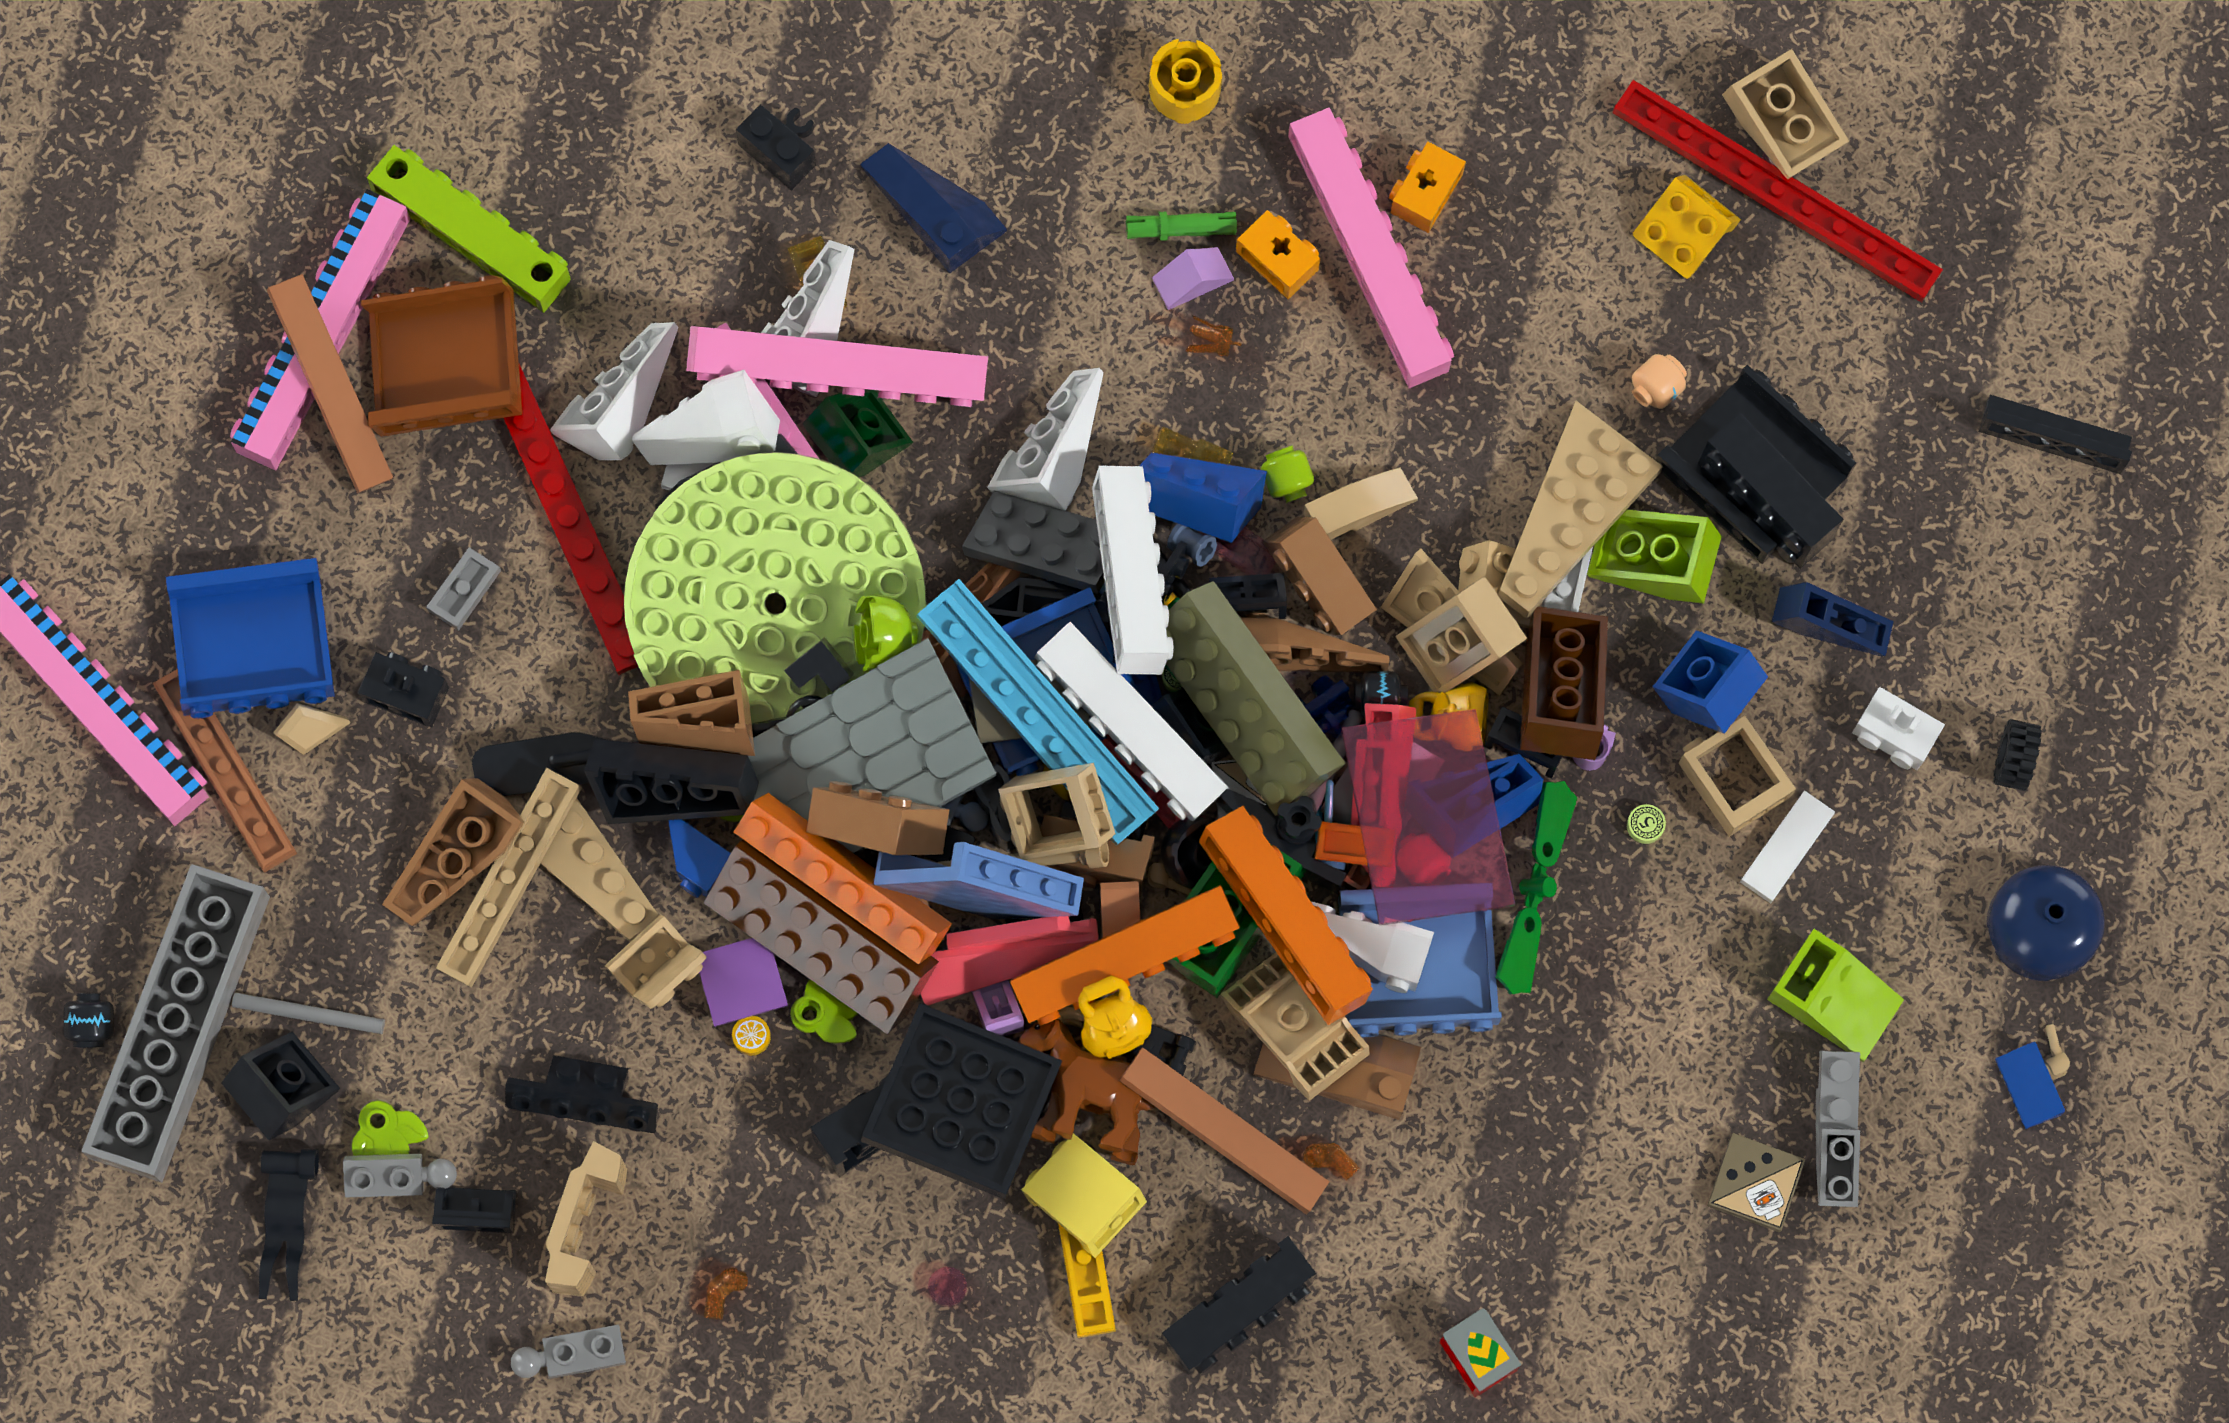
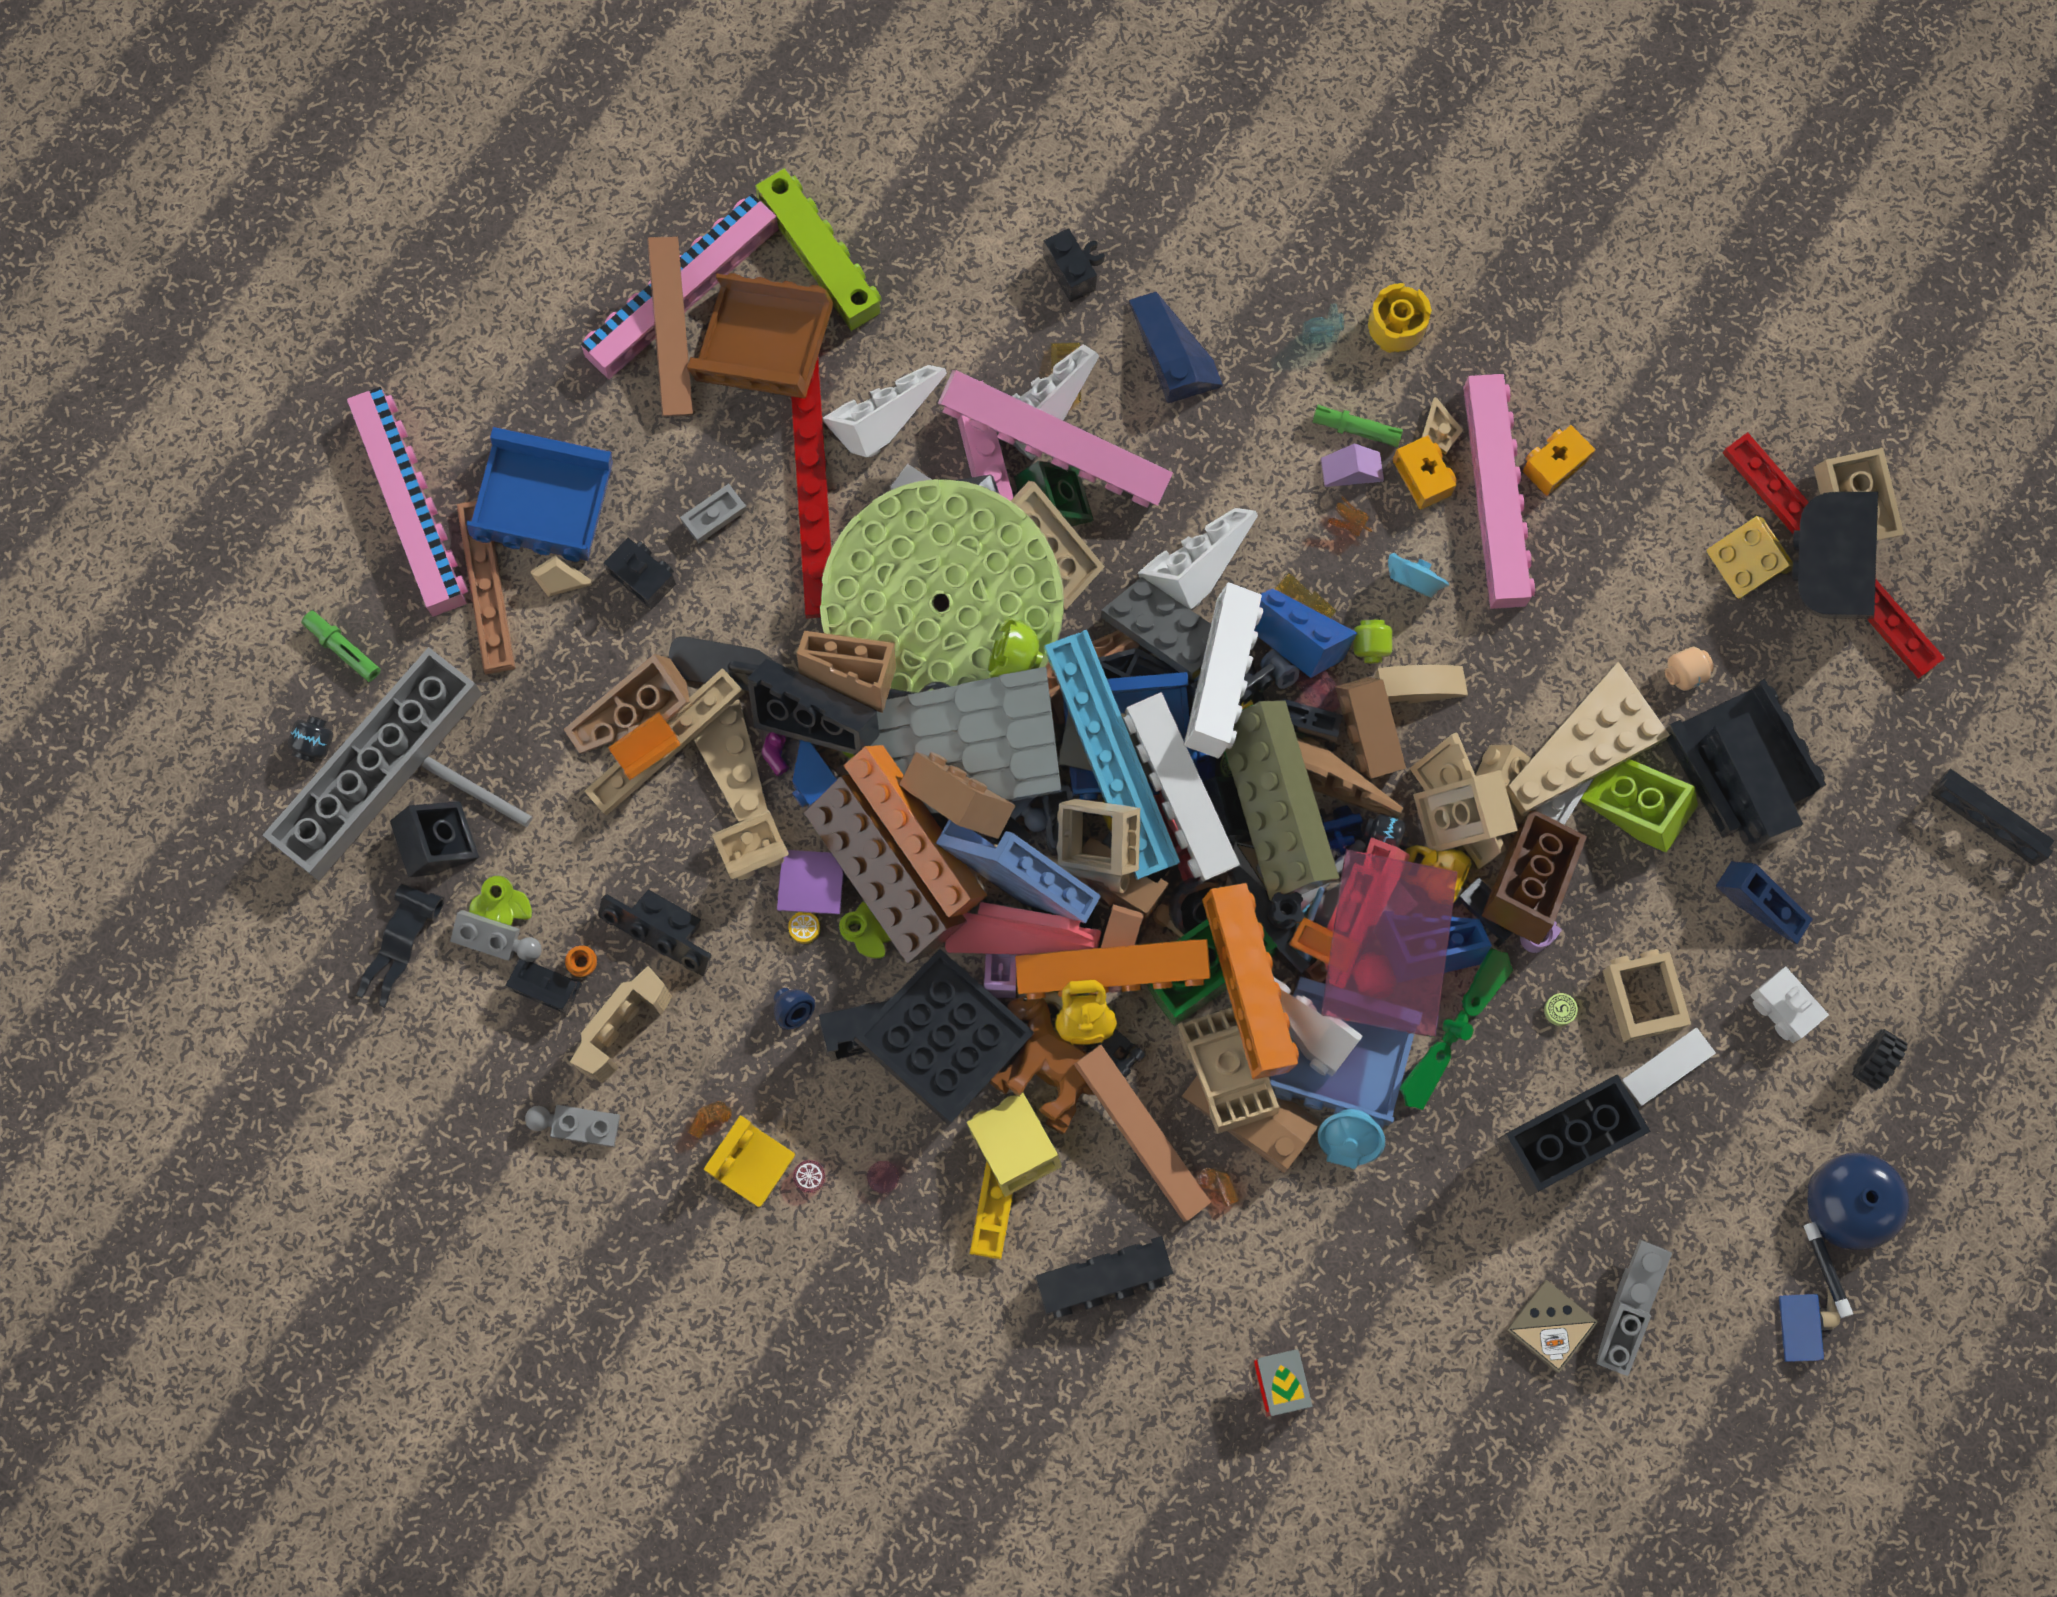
camera: 20 degrees right, 0 degrees up
(66, 893) = (331, 638): none -> bright green pin
(491, 890) = (644, 745): none -> orange panel
(501, 1155) = (574, 954): none -> orange plate
(638, 846) = (772, 753): none -> magenta arm
(713, 426) = (943, 451): white wedge -> none
(773, 1131) = (793, 1008): none -> dark blue brick
(789, 1324) = (749, 1162): none -> yellow bracket
(820, 660) = (958, 657): black piece -> none
(863, 1316) = (809, 1176): none -> clear pink tile
(908, 494) = (1075, 559): none -> tan wing
(1101, 125) = (1323, 330): none -> clear light blue bracket
(1279, 193) = (1441, 427): none -> tan piece
(1310, 380) = (1415, 575): none -> medium azure piece
(1461, 1053) = (1351, 1138): none -> medium azure piece
(1705, 961) = (1573, 1135): none -> black brick
(1710, 681) = (1651, 915): blue brick -> none
(1781, 193) = (1838, 555): none -> black brick
(1836, 995) = (1667, 1199): lime slope -> none
(2038, 1010) = (1828, 1270): none -> black bar

